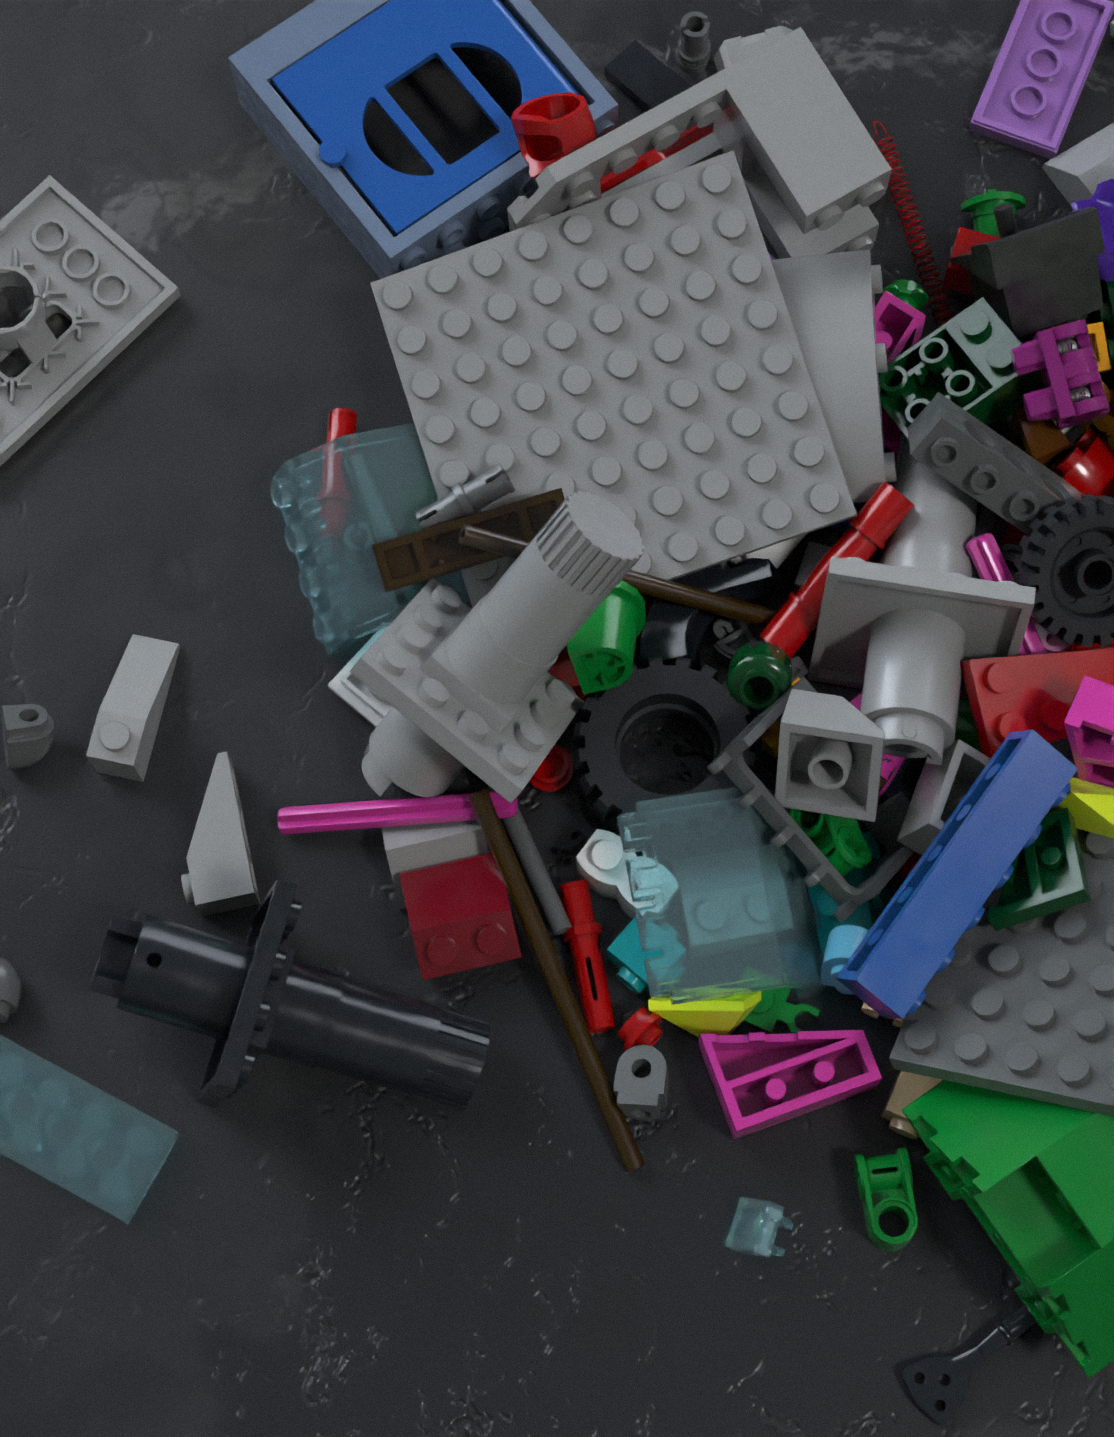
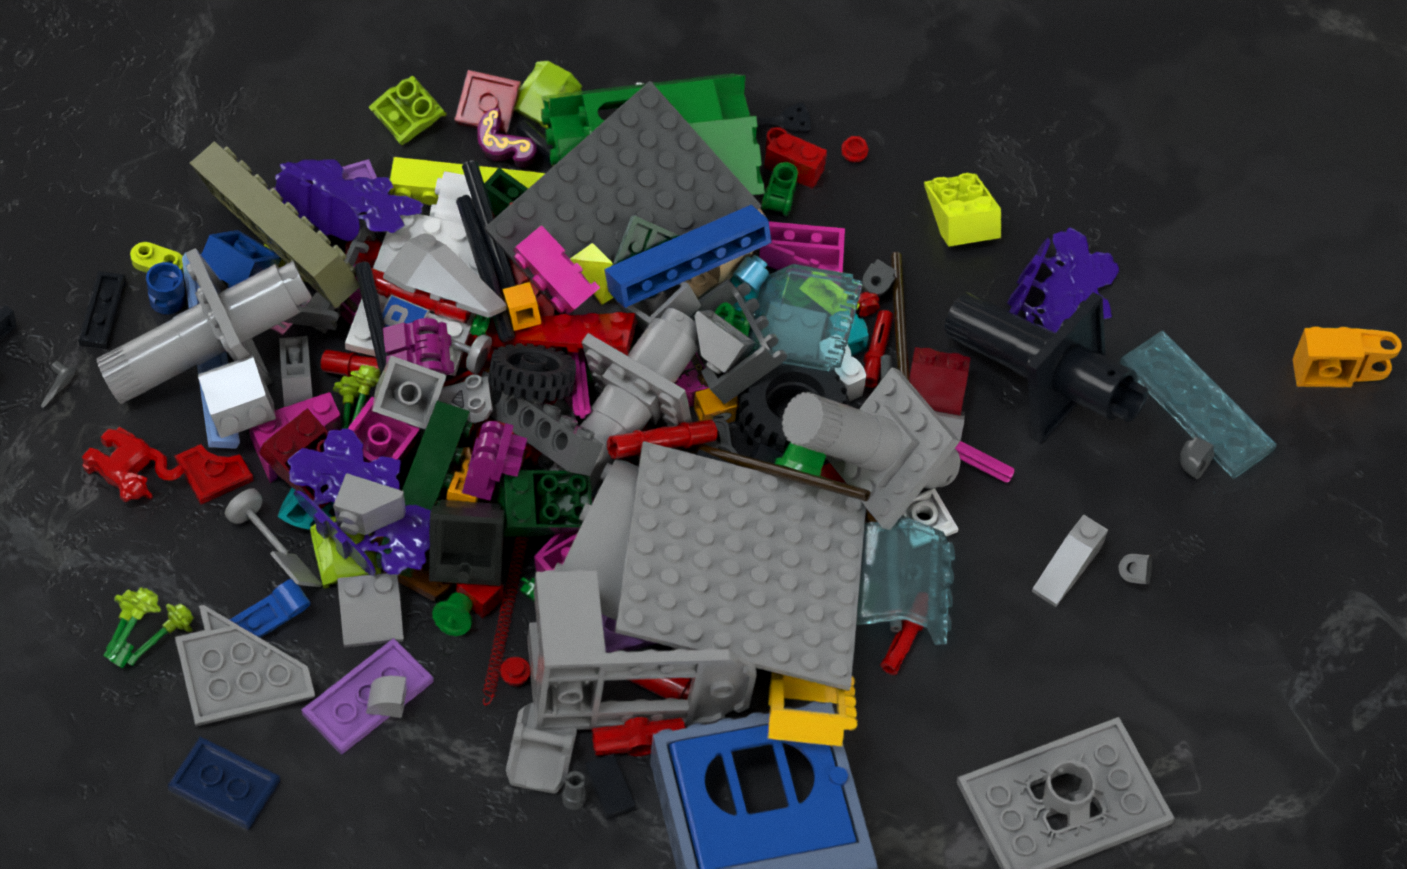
camera: 165 degrees left, 15 degrees down
(219, 853) = (1051, 469): light grey slope -> none
(308, 1214) = (1069, 283): none -> dark purple plant
(437, 548) = (854, 524): dark brown plate -> none
(455, 181) = (806, 725): none -> yellow hinge
(467, 498) = (849, 549): dark grey pin -> none
(552, 128) = (706, 707): red piece -> none
(561, 1320) = (964, 209): none -> neon yellow slope
(756, 1228) = (850, 204): clear light blue tile -> none
(759, 675) = (729, 409): dark green head -> none
(803, 1363) = (854, 149): none -> red plate
(898, 1278) = (803, 155): none -> red hinge
(1010, 50) = (387, 696): none -> light grey brick

